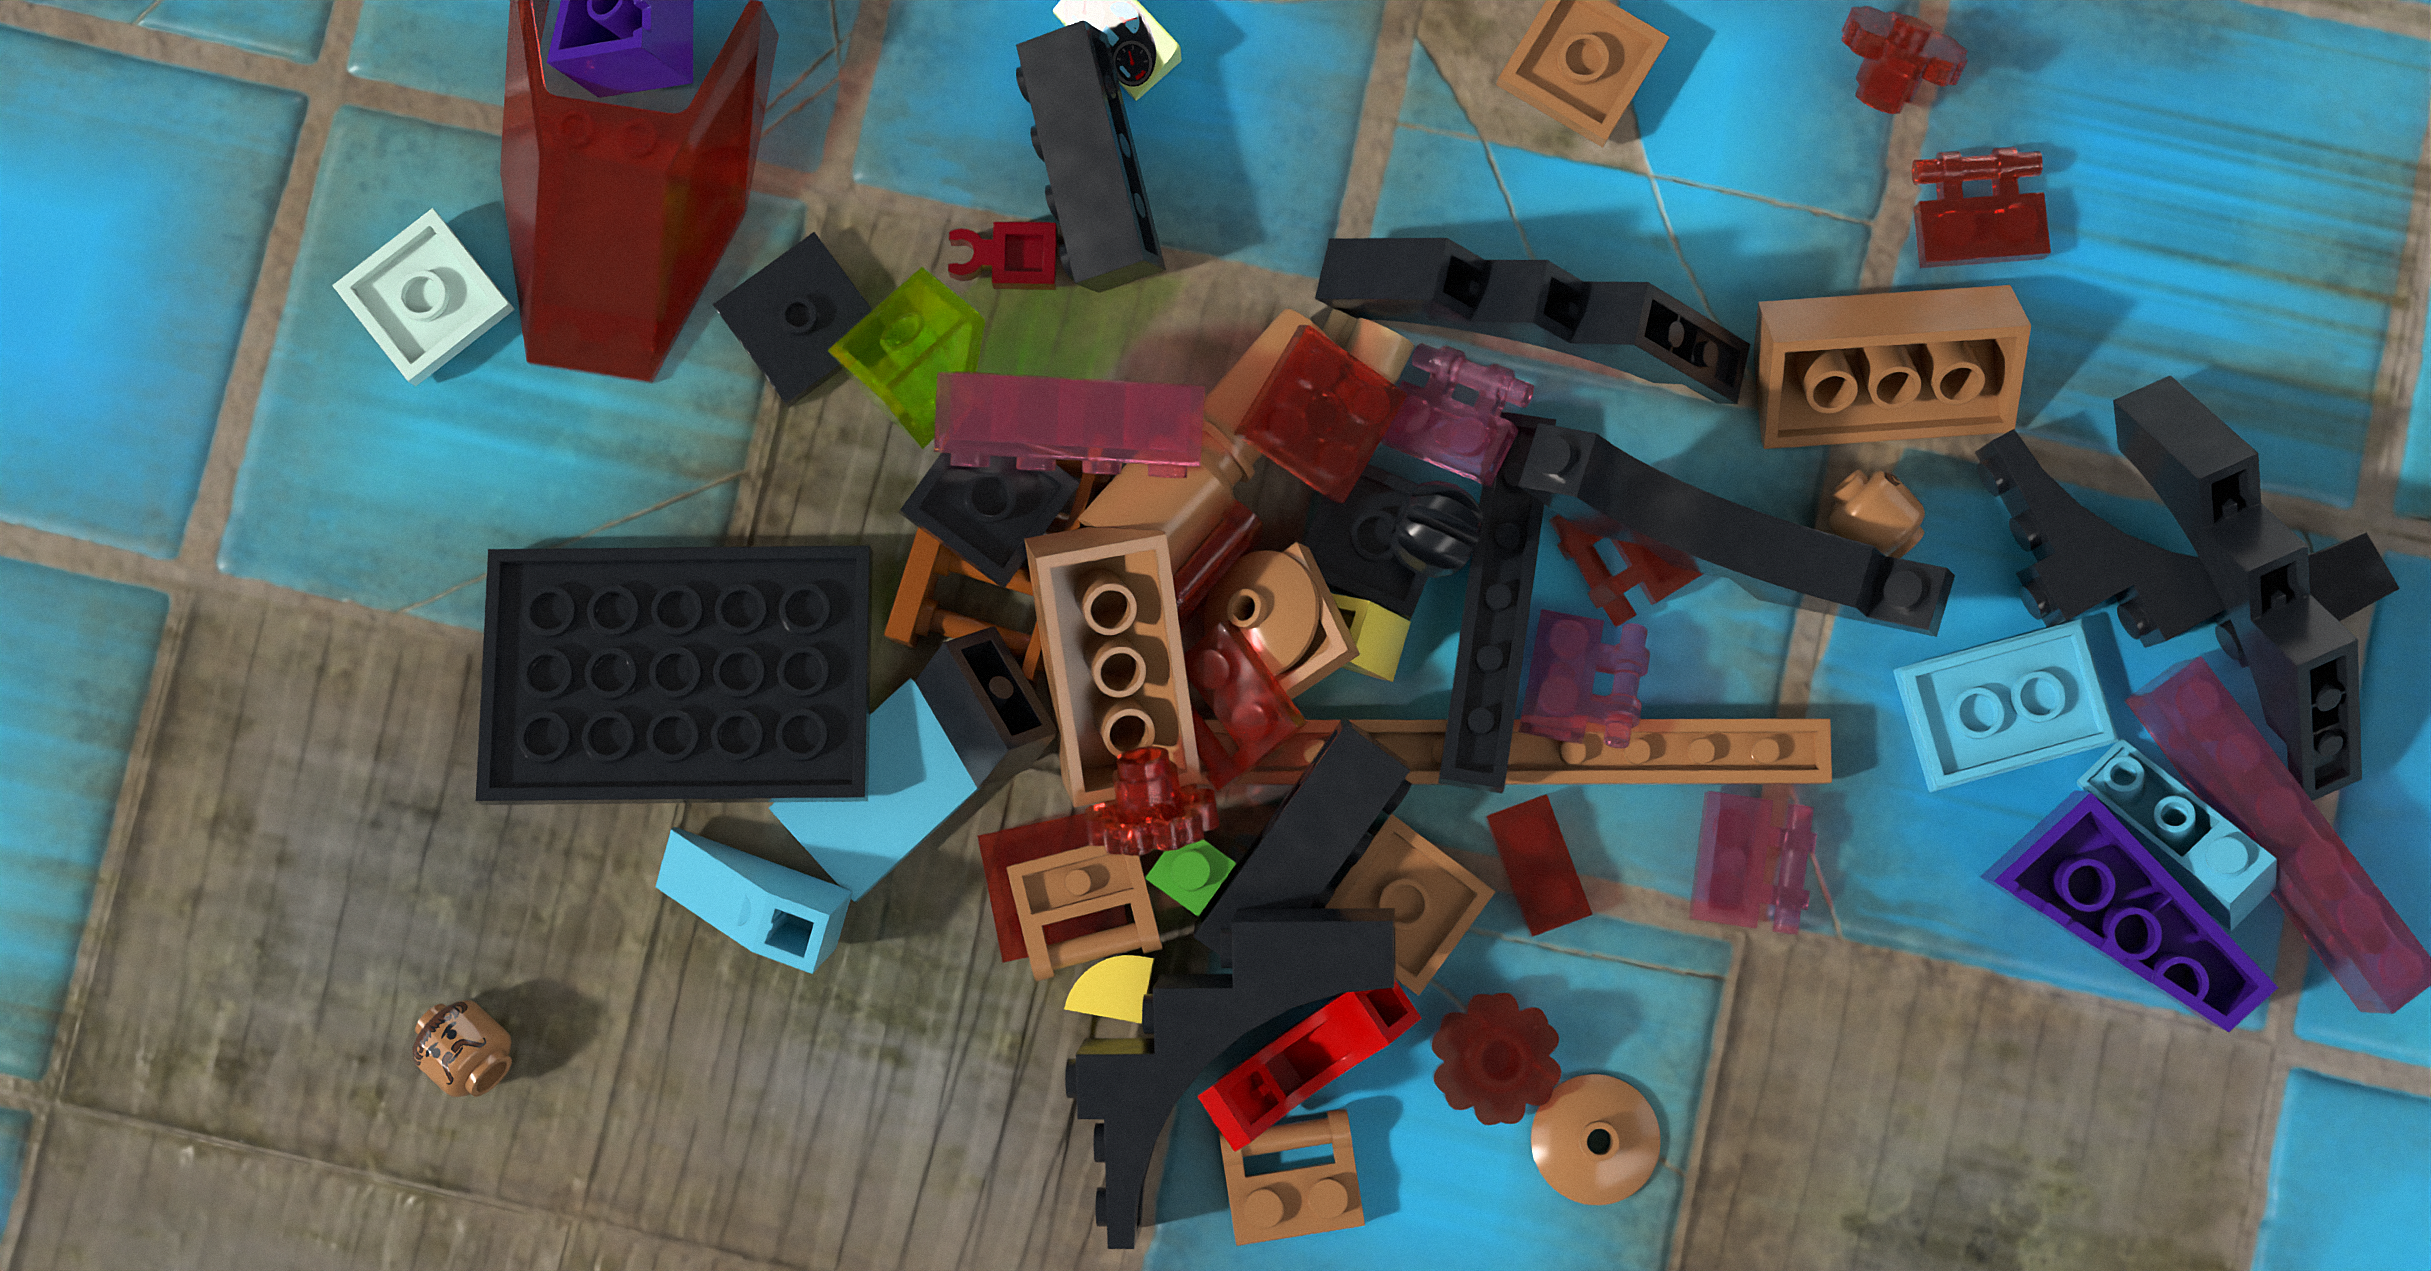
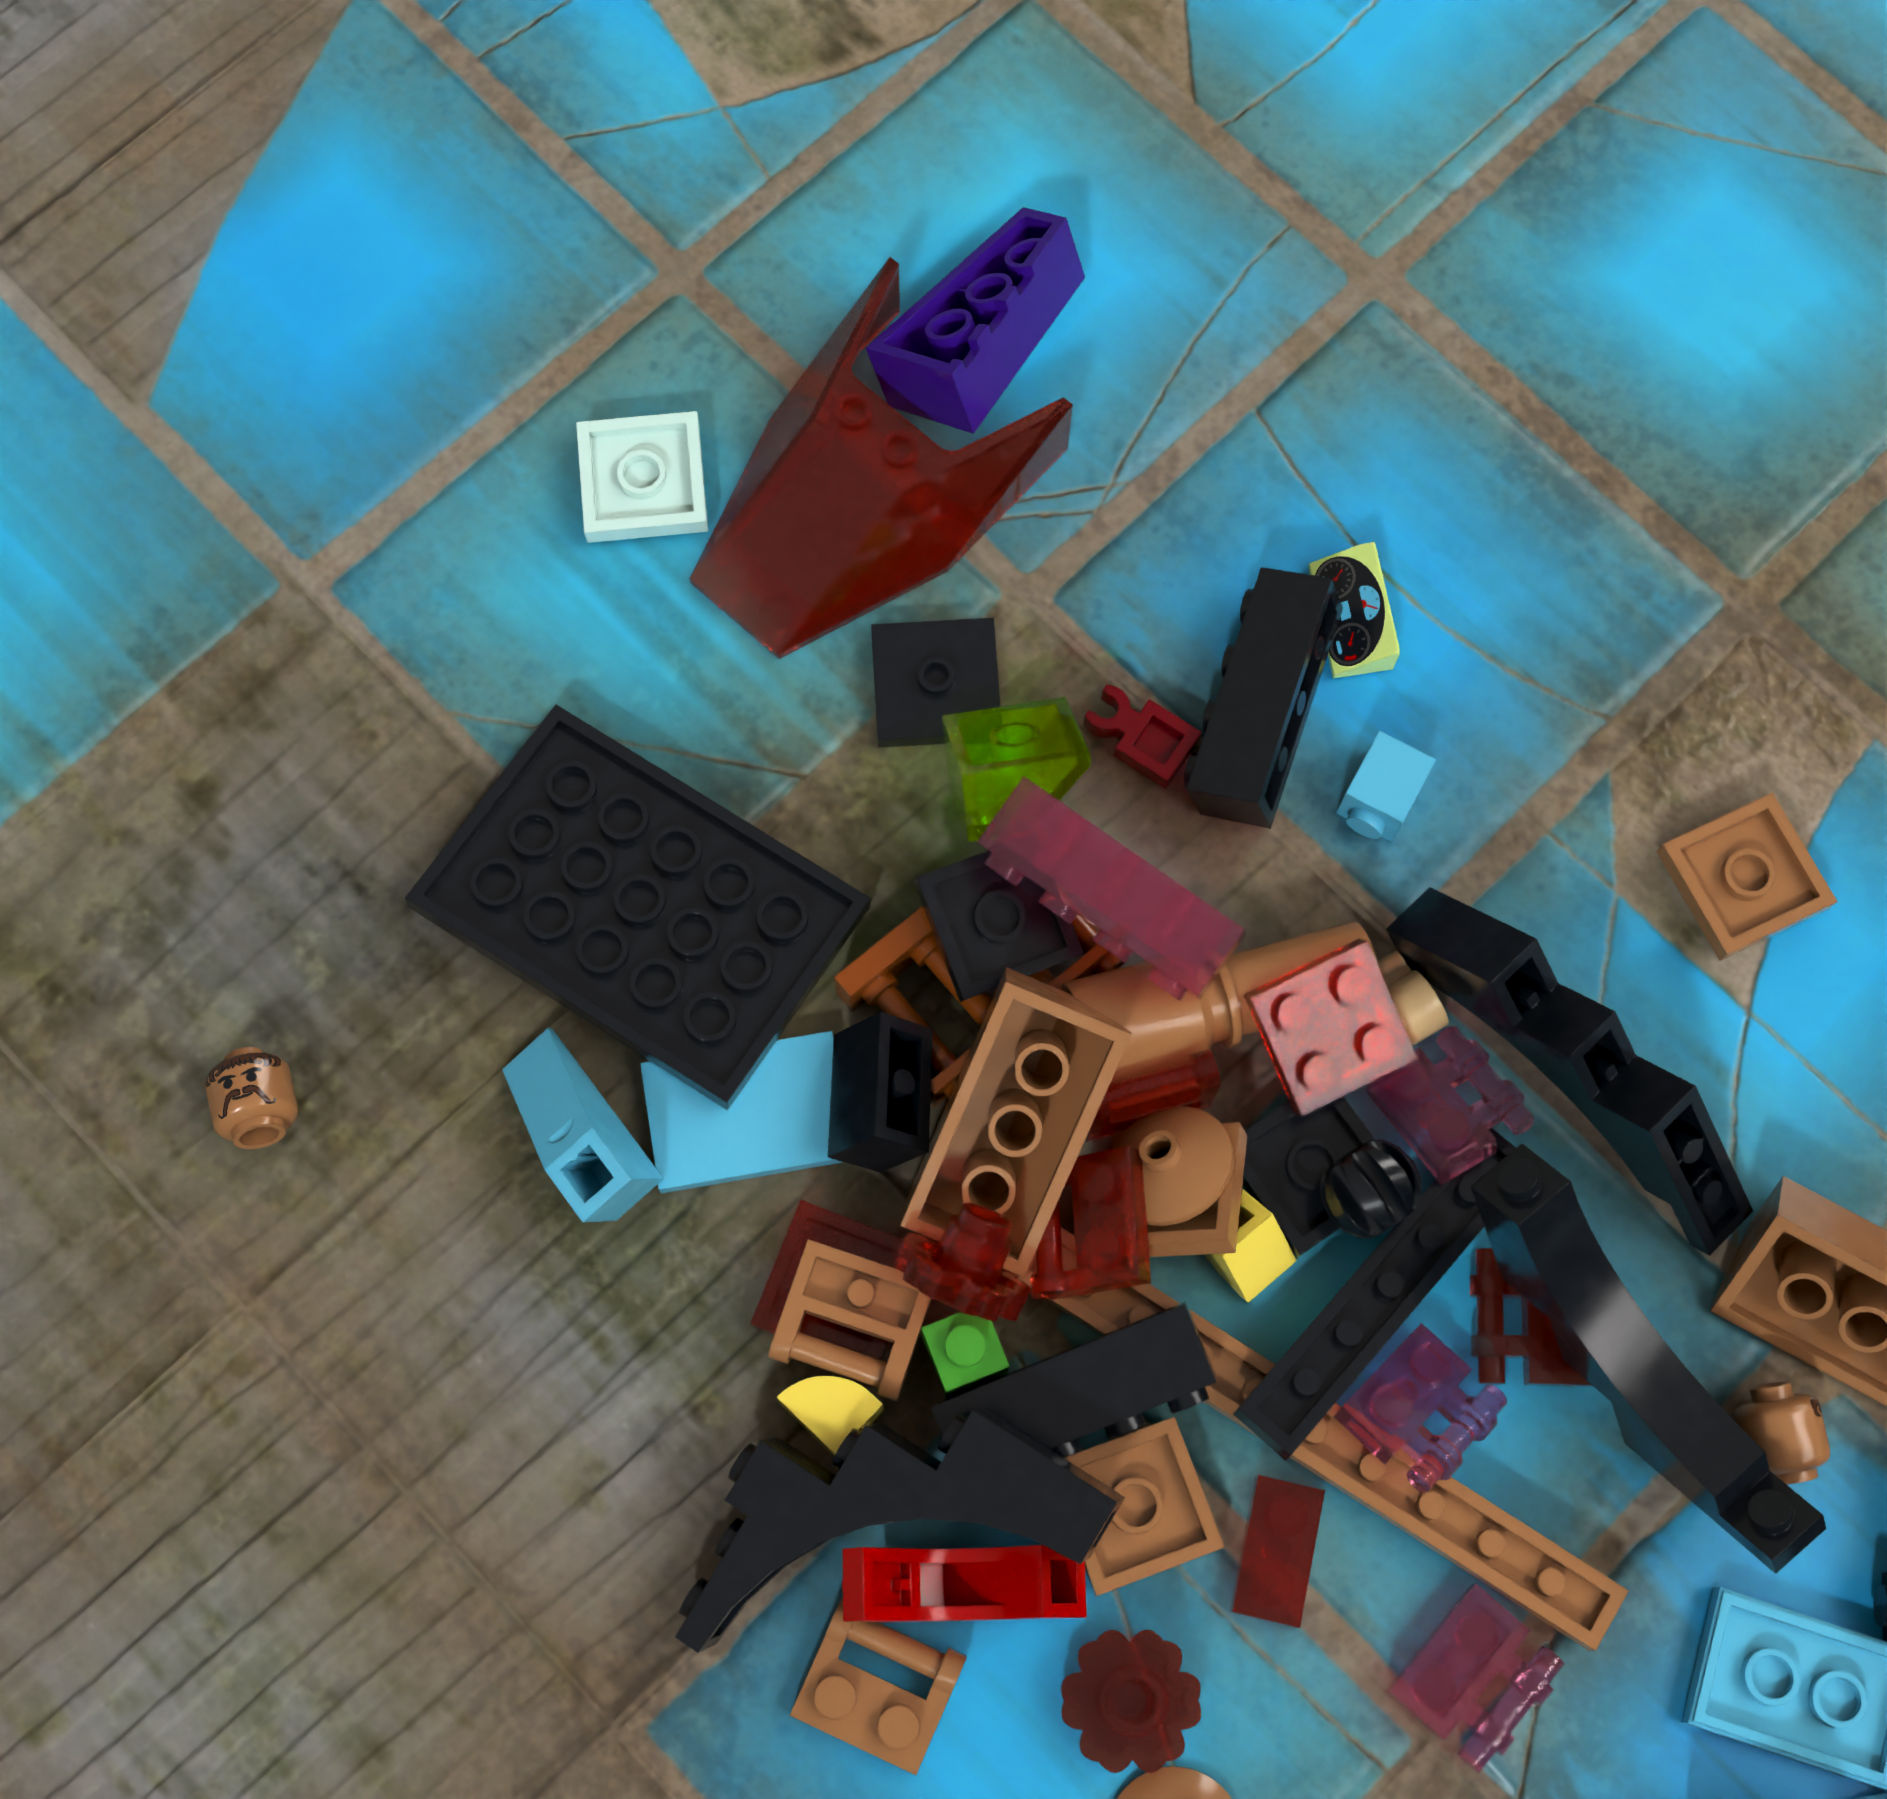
camera: 30 degrees right, 10 degrees down
(1240, 174) = (1385, 787): none -> medium azure brick

